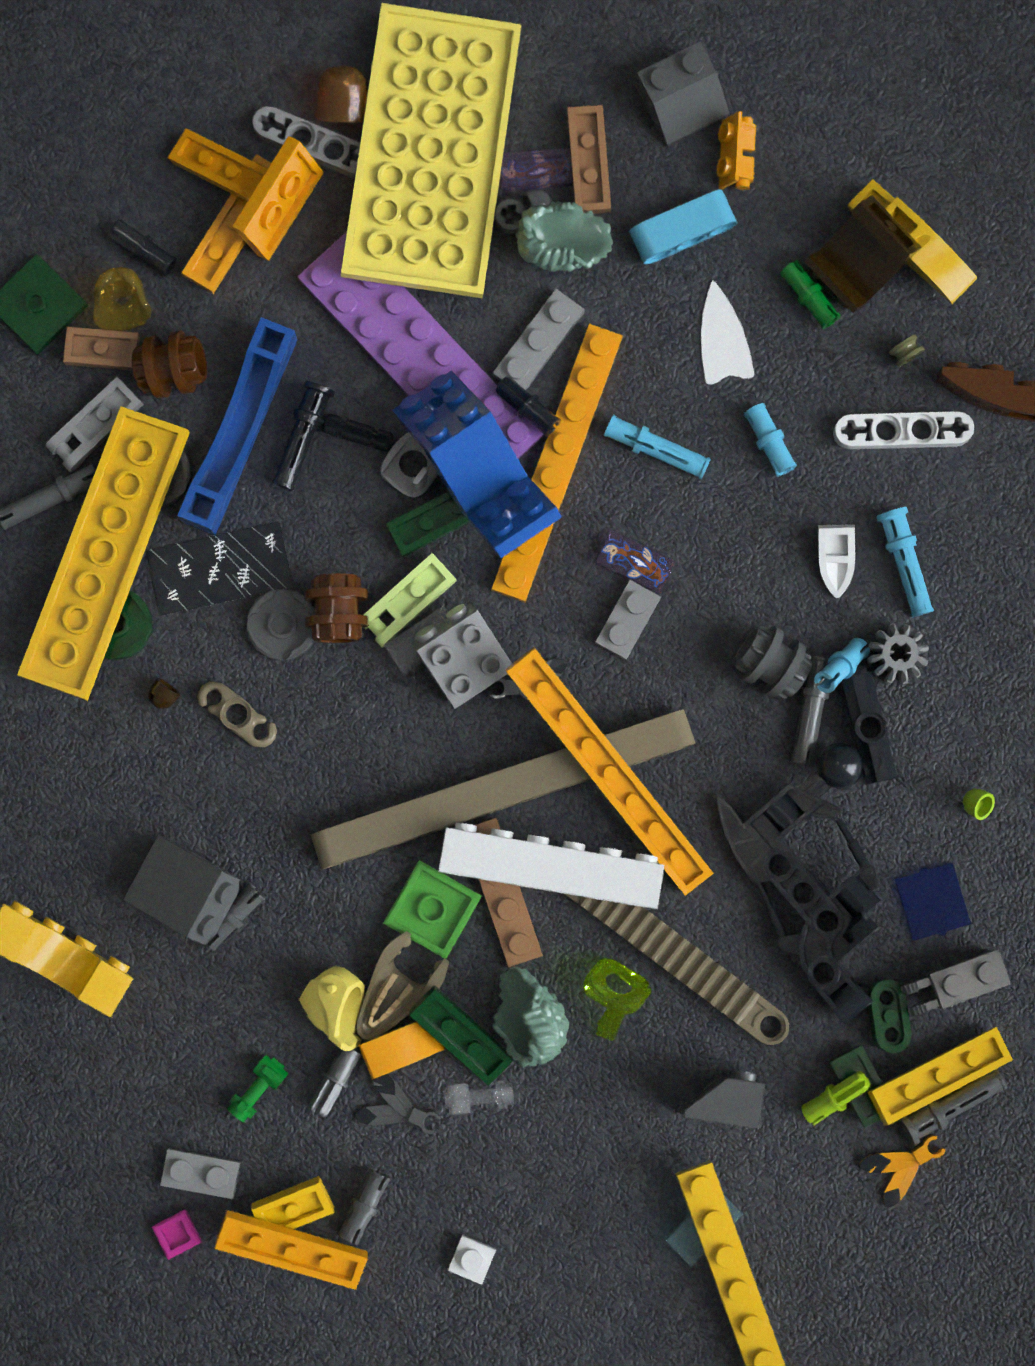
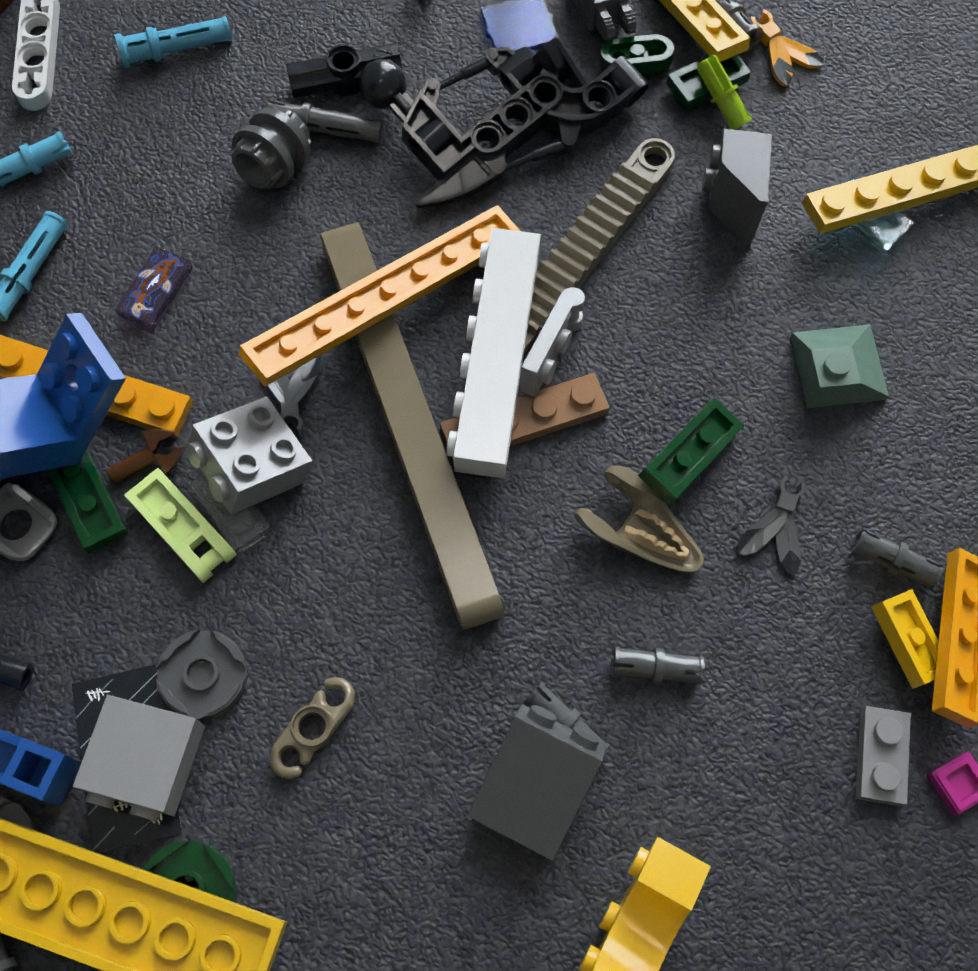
camera: 90 degrees left, 15 degrees down
(162, 694) = (284, 824): dark brown hinge -> none
(212, 582) = (139, 758): none -> light grey brick
(269, 1073) = (754, 672): green bar -> none
(277, 993) = (657, 665): none -> dark grey pin
(334, 1005) = (665, 596): light yellow helmet -> none
(334, 1081) = (755, 595): dark grey axle -> none
(336, 608) = (182, 600): reddish brown piece -> none
(398, 1049) = (712, 521): light orange slope -> none
(432, 909) = (546, 492): bright green tile -> none
(460, 1099) = (760, 456): clear bar -> none
(470, 570) = (147, 456): none -> reddish brown bar
(472, 1259) = (937, 443): white plate -> none
(529, 1019) = (668, 377): sand green piece -> none
(551, 1181) = (839, 366): none -> sand green slope
(569, 919) = (552, 340): none -> light grey plate
(616, 1003) = (644, 290): clear neon green piece -> none
(627, 620) = (219, 295): light grey plate -> none
(836, 556) = (161, 98): white plate -> none
(841, 665) = (277, 85): medium azure pin -> none
(896, 641) = (268, 45): light grey gear -> none

